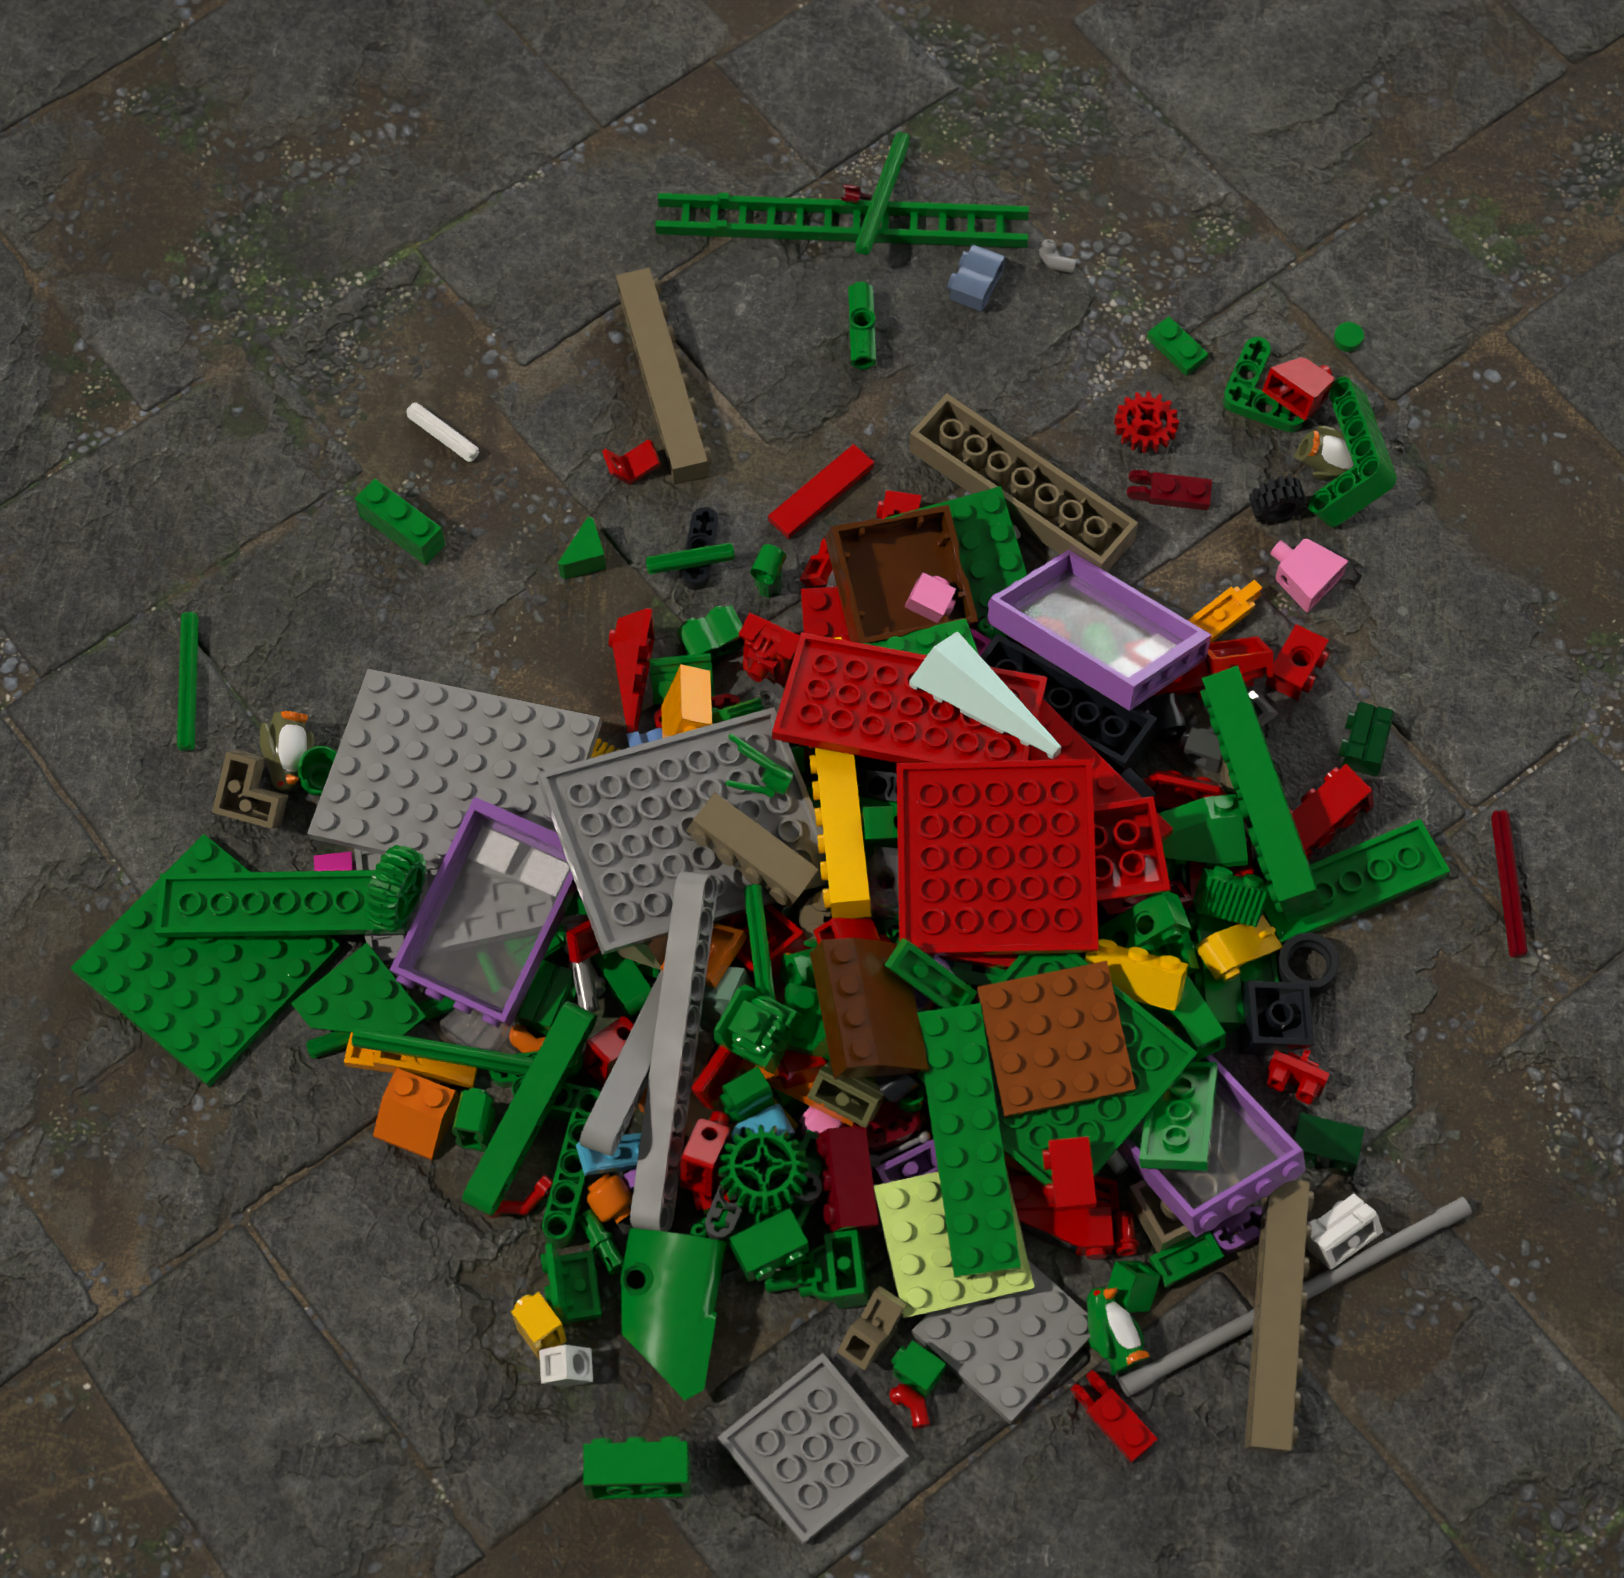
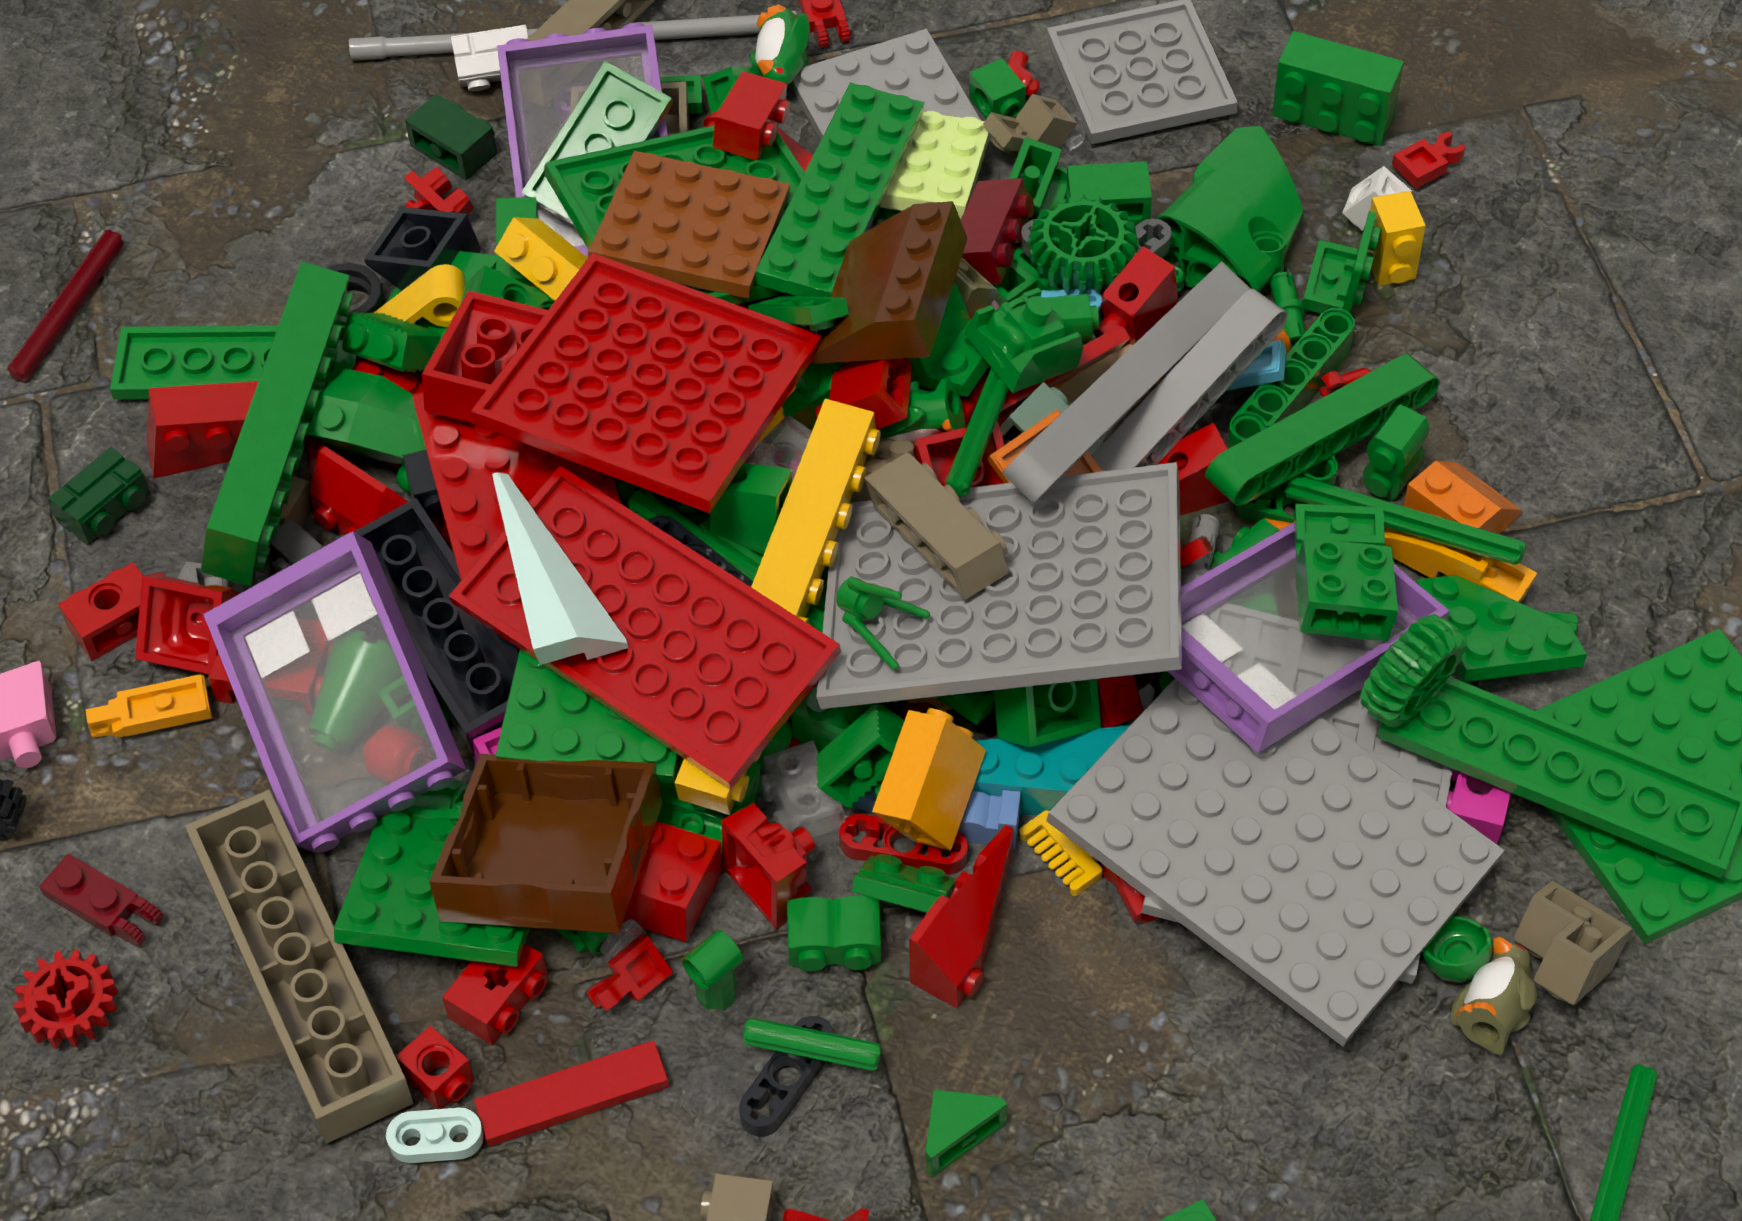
camera: 155 degrees left, 10 degrees down
(459, 926) = (1346, 589): none -> green brick
(481, 984) = (1338, 523): none -> green plate
(545, 1442) = (1426, 162): none -> red plate
(882, 434) = (436, 1133): none -> light aqua plate
(904, 477) = (430, 1052): none -> red brick
(931, 597) = (523, 810): bright pink brick -> none

